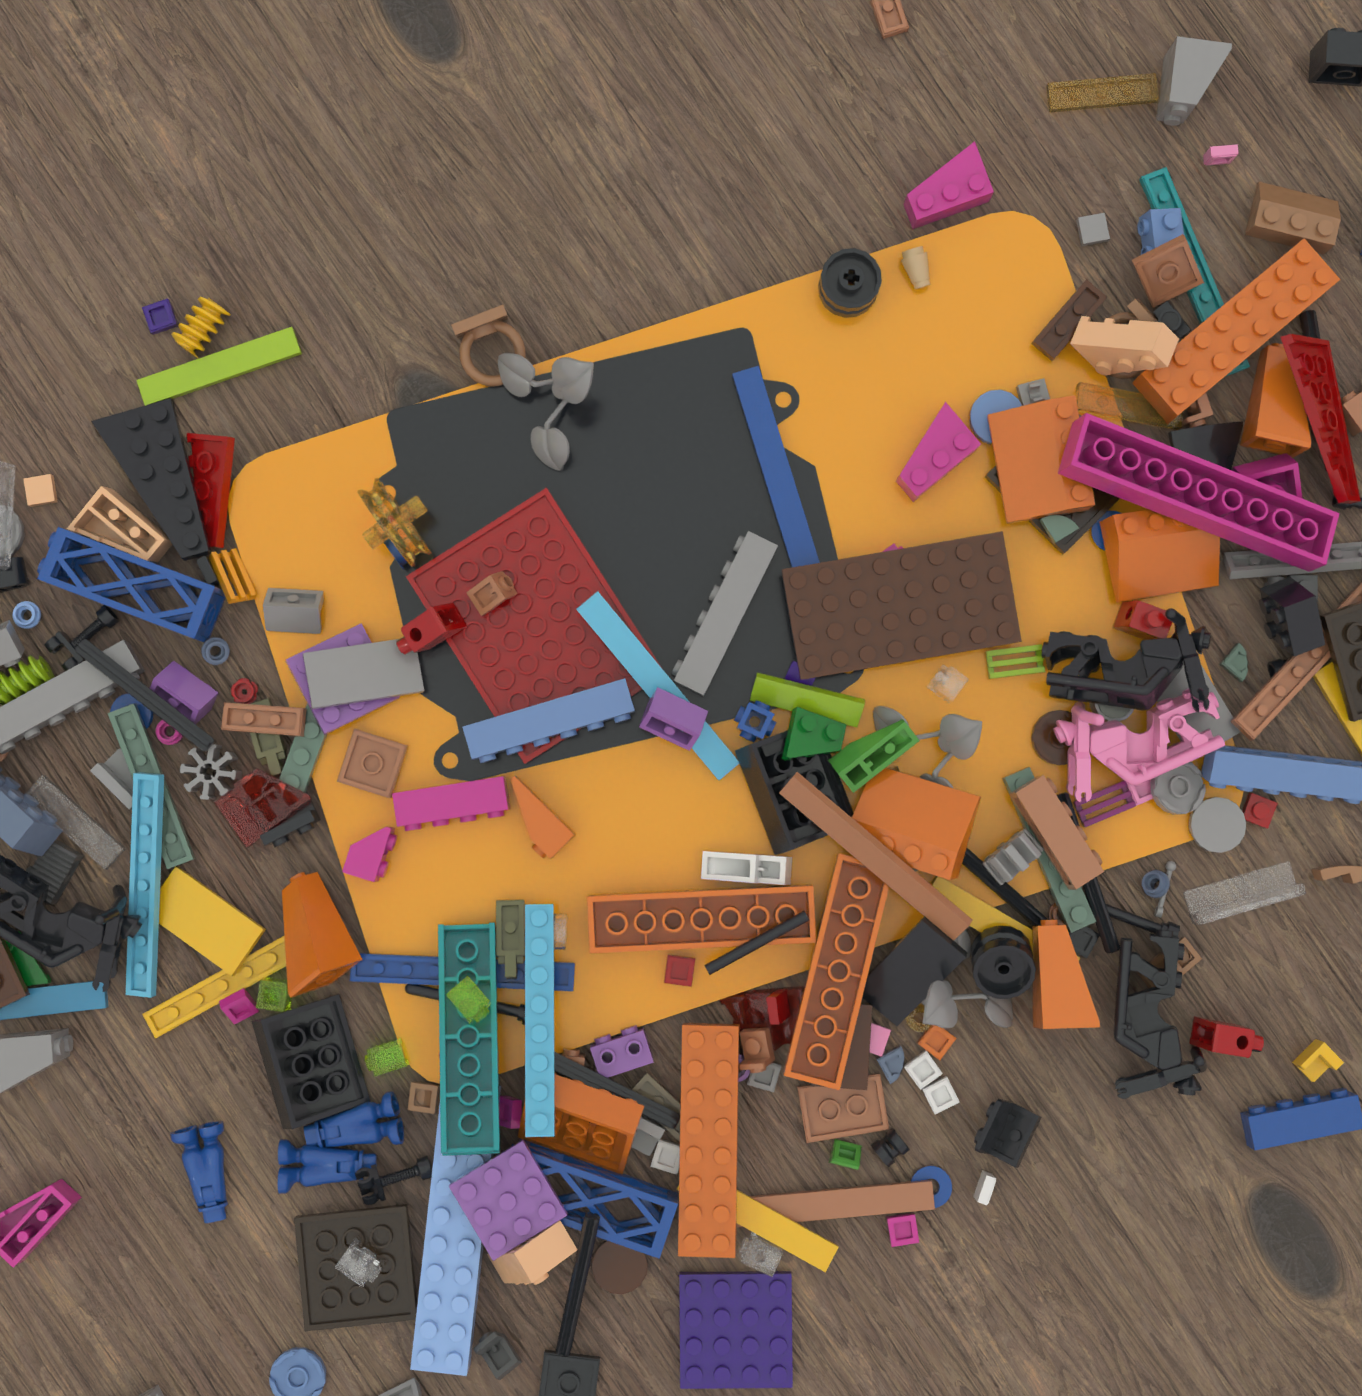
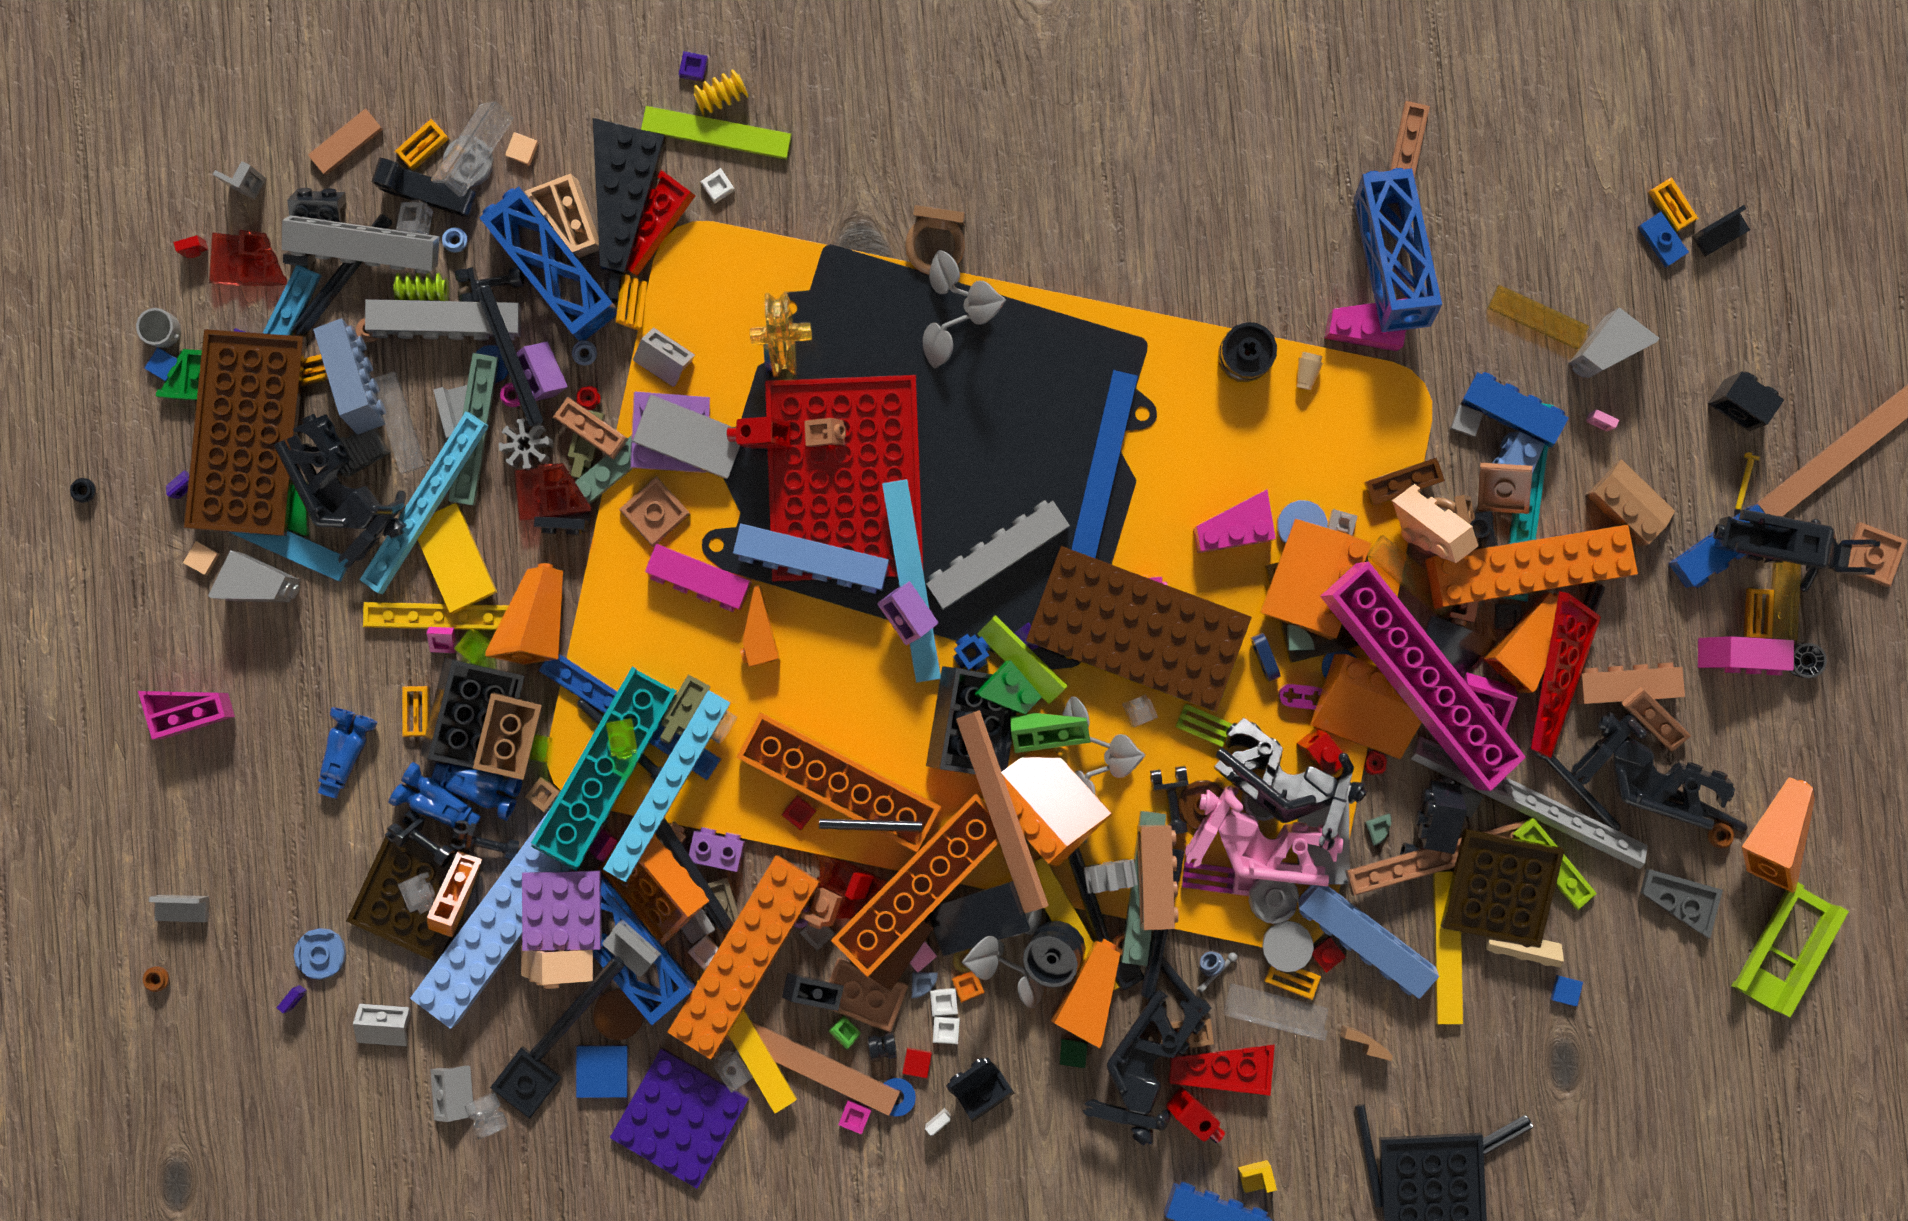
camera: 30 degrees right, 0 degrees up
(244, 1094) = (416, 710): none -> light orange tile
(250, 417) = (717, 185): none -> white tile
(316, 1198) = (414, 824): none -> black bar
(357, 1062) = (507, 736): none -> medium nougat slope
(368, 855) = (609, 581): dark pink slope -> none
(394, 1244) = (453, 894): none -> orange slope
(498, 1353) = (484, 1026): dark grey bracket -> none
(596, 1196) = (631, 948): none -> light grey panel
(635, 1328) = (601, 1071): none -> blue tile
(746, 868) = (898, 763): white slope -> none
(792, 1134) = (812, 991): none -> black slope
(880, 66) = (1374, 193): none -> blue piece
(931, 1142) = (916, 1062): none -> red tile
(1026, 726) = (1182, 780): none -> black bar
(1036, 562) = (1265, 657): none -> dark blue beam
(1074, 1045) = (1073, 1053): none -> dark green slope
(1088, 573) = (1302, 690): none -> magenta beam
(1133, 191) = (1515, 409): none -> blue brick
(1202, 598) = (1381, 763): none -> red plate
(1233, 973) = (1230, 1070): none -> red wing
(1239, 391) = (1507, 616): none -> black tile
(1262, 848) = (1271, 971): none -> light orange tile

